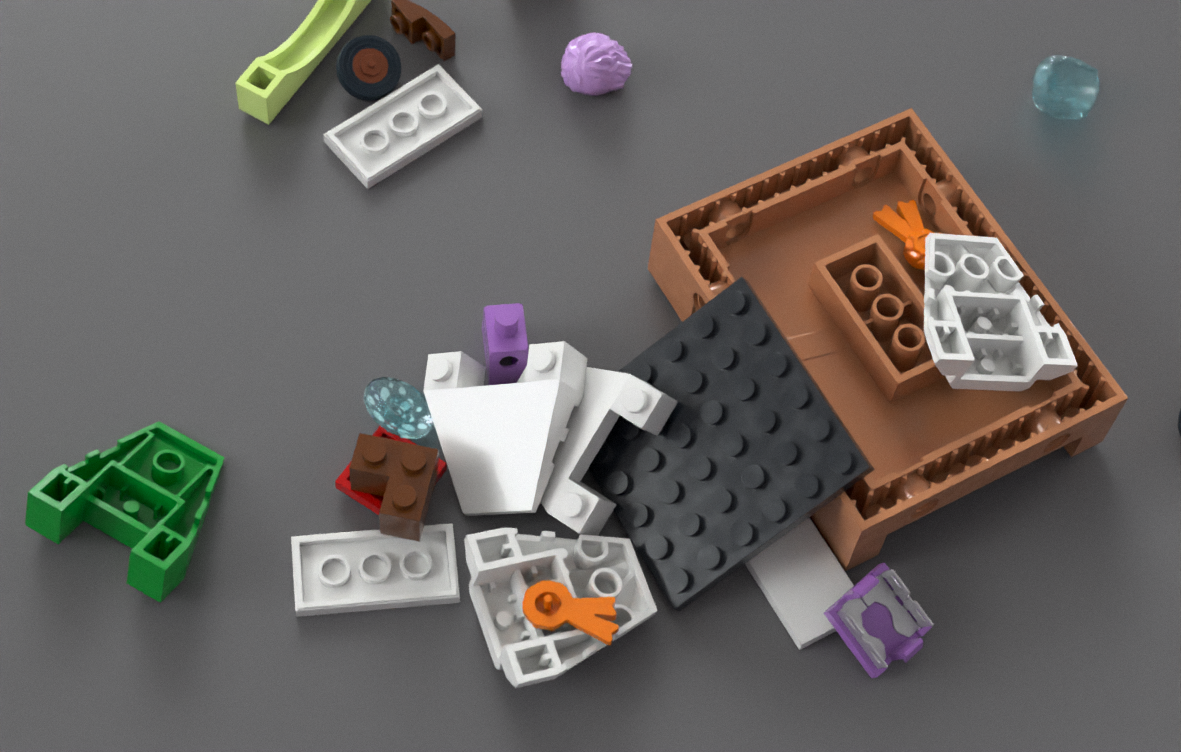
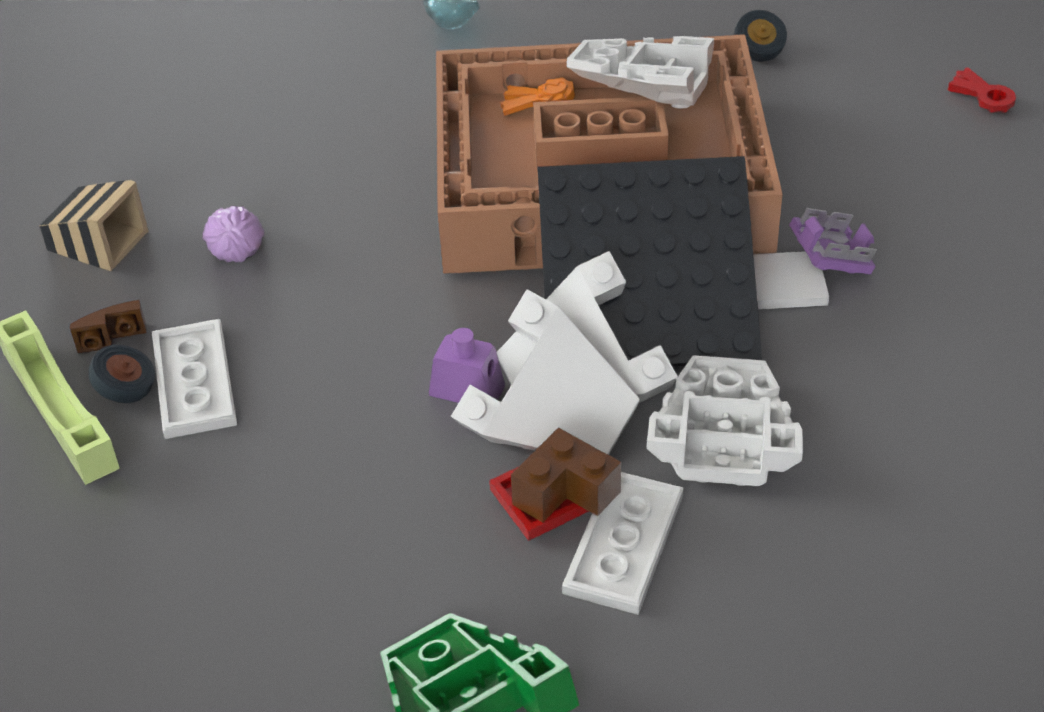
camera: 55 degrees left, 15 degrees down
(398, 407) = (481, 465): clear light blue dish -> none
(551, 605) = (739, 414): orange piece -> none

